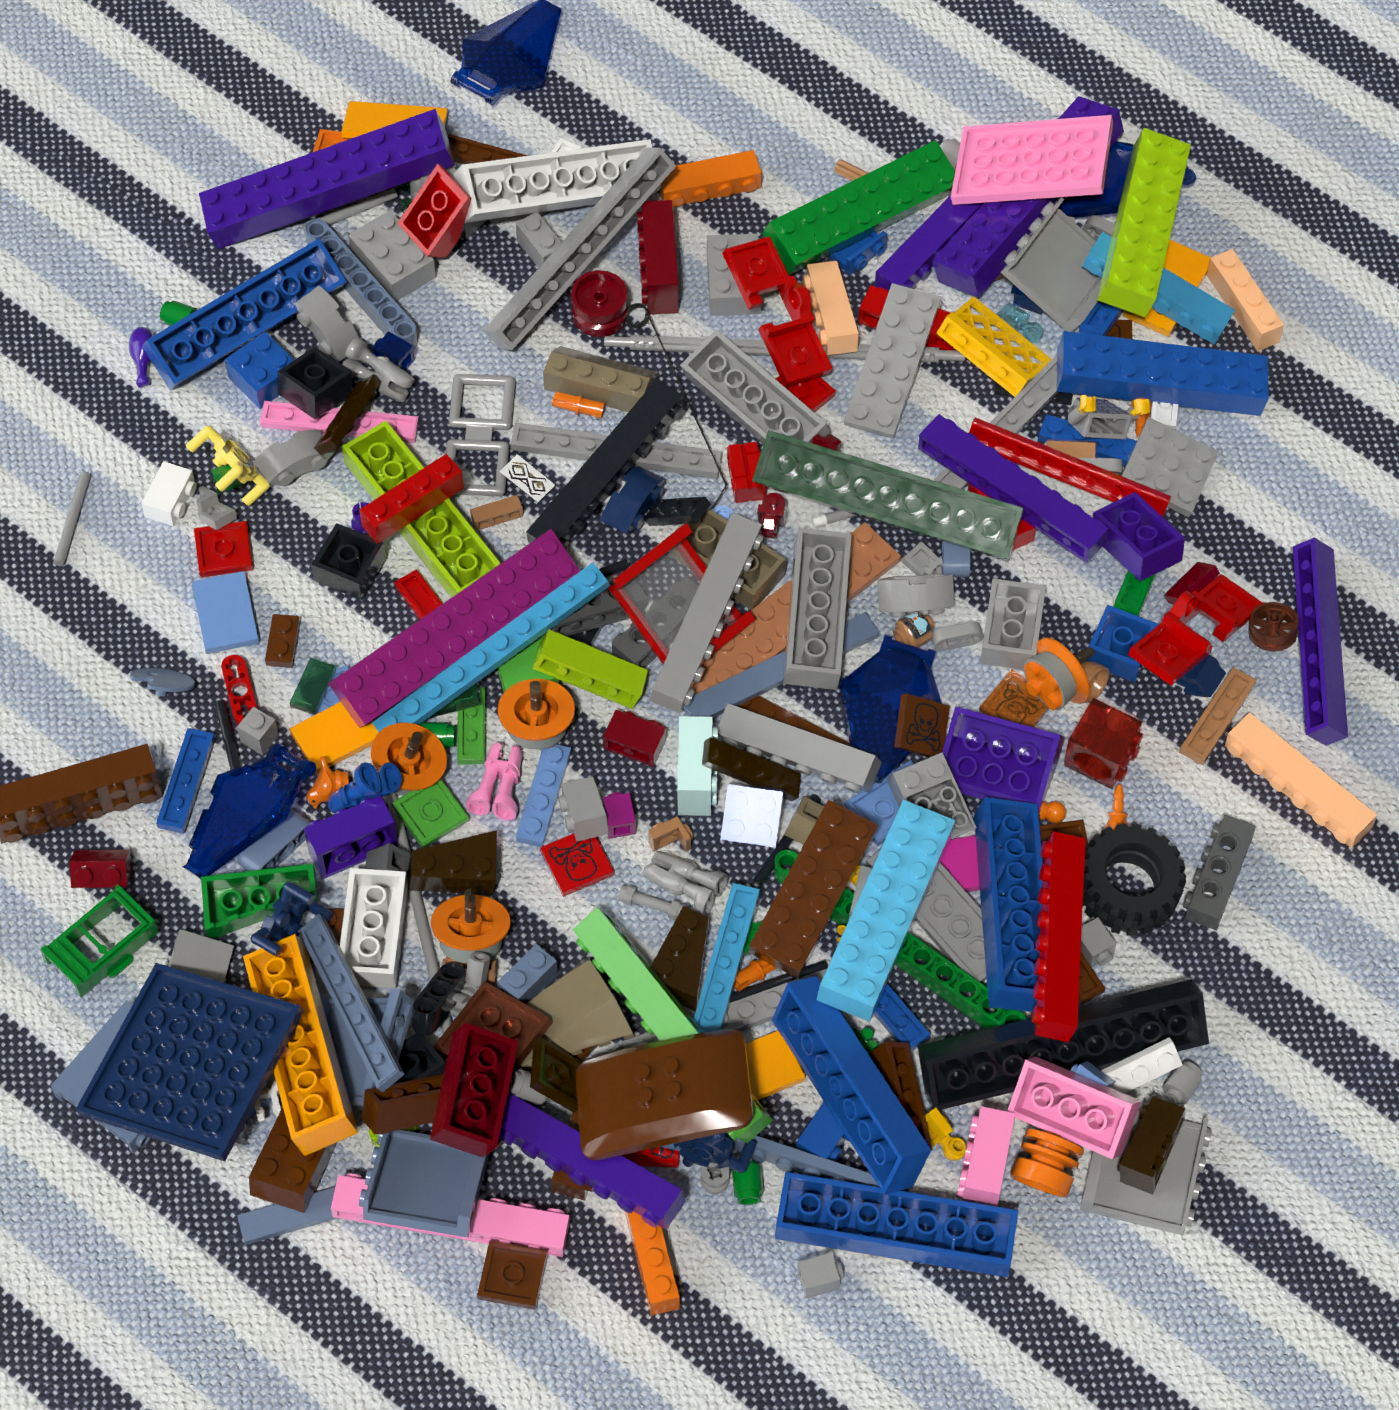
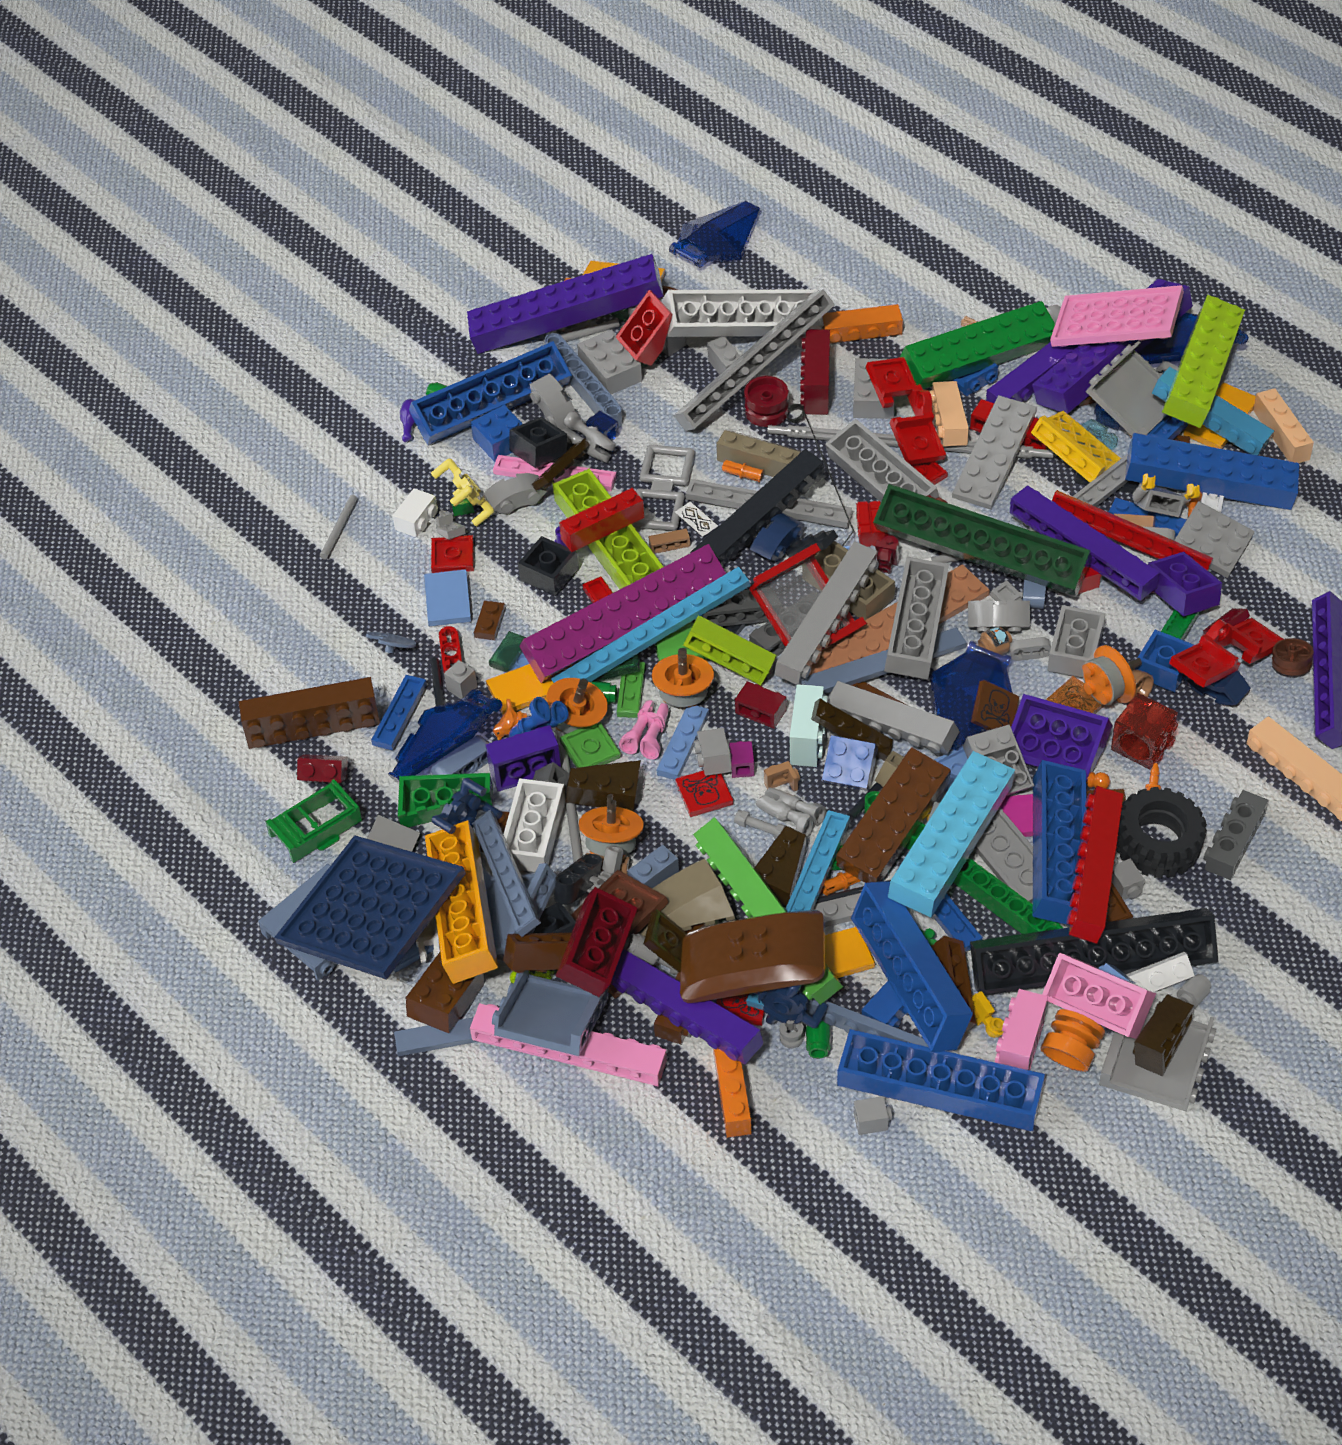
camera: 10 degrees right, 10 degrees down
(512, 1275) = (614, 1094): reddish brown plate -> none
(1218, 716) = (1242, 720): medium nougat plate -> none

